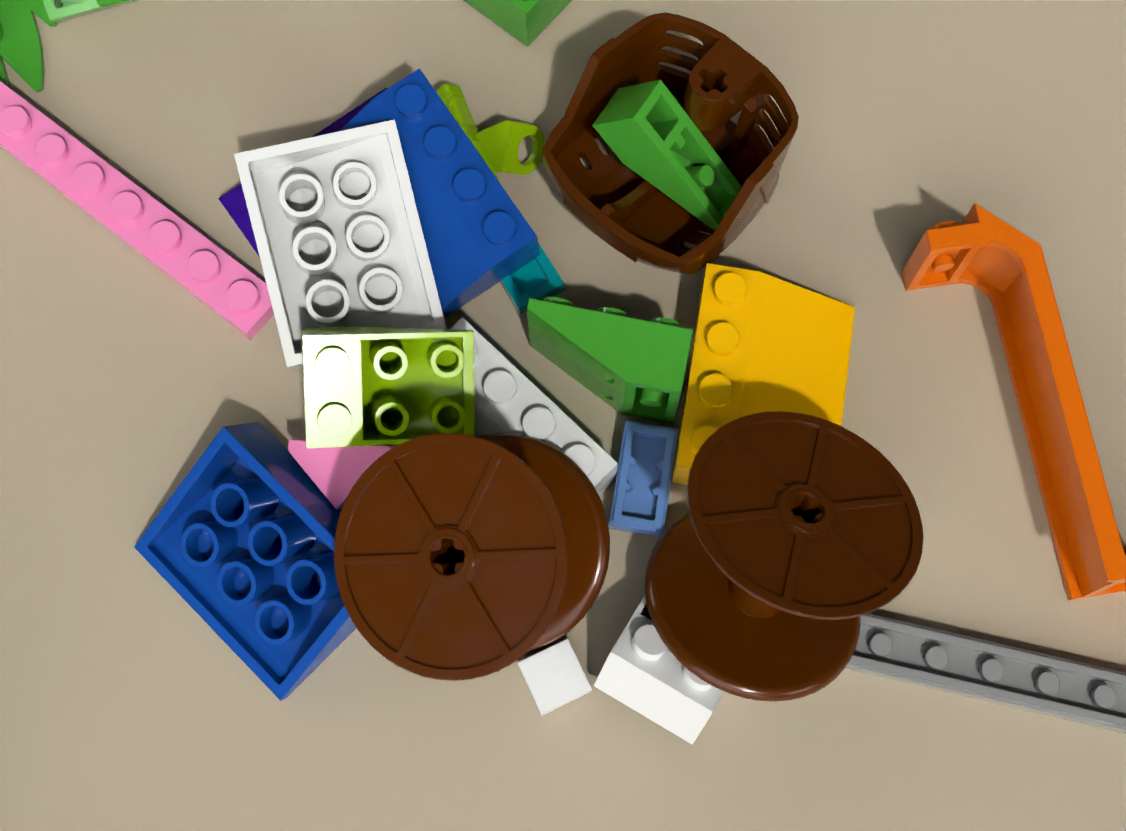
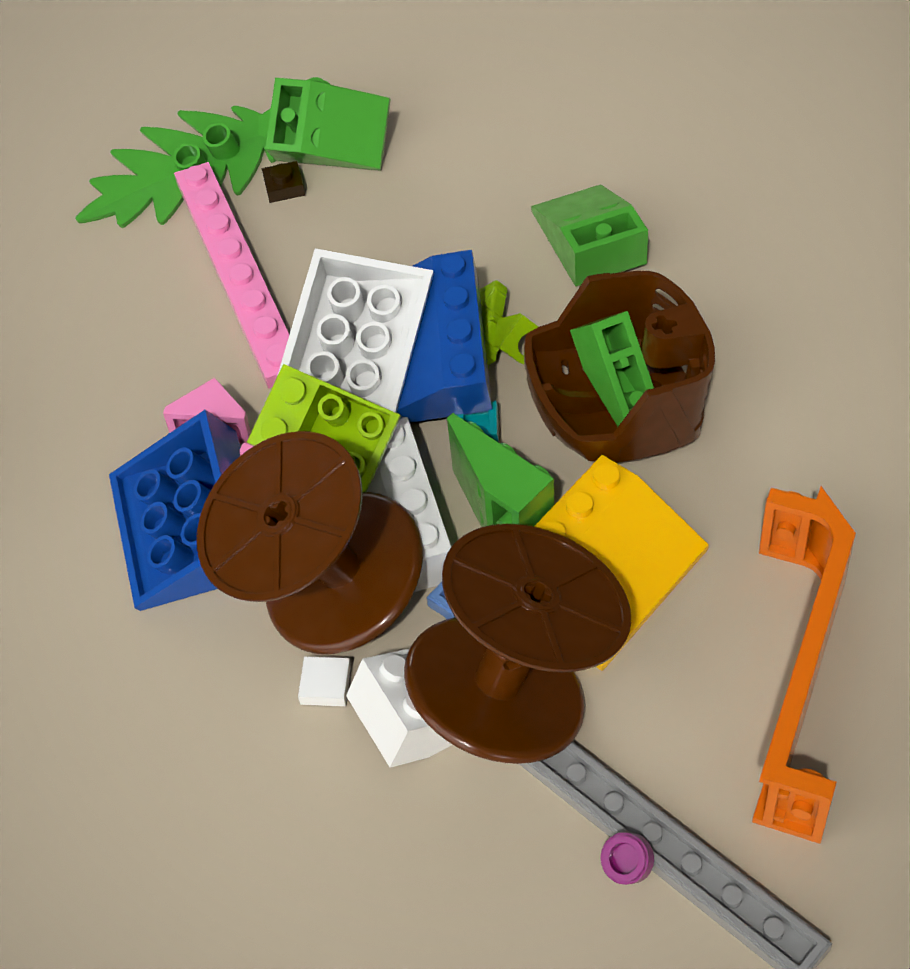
camera: 35 degrees right, 20 degrees down
(89, 50) = (283, 181): none -> dark brown plate
(205, 409) = (215, 400): none -> bright pink slope
(986, 713) = (627, 858): none -> magenta tile

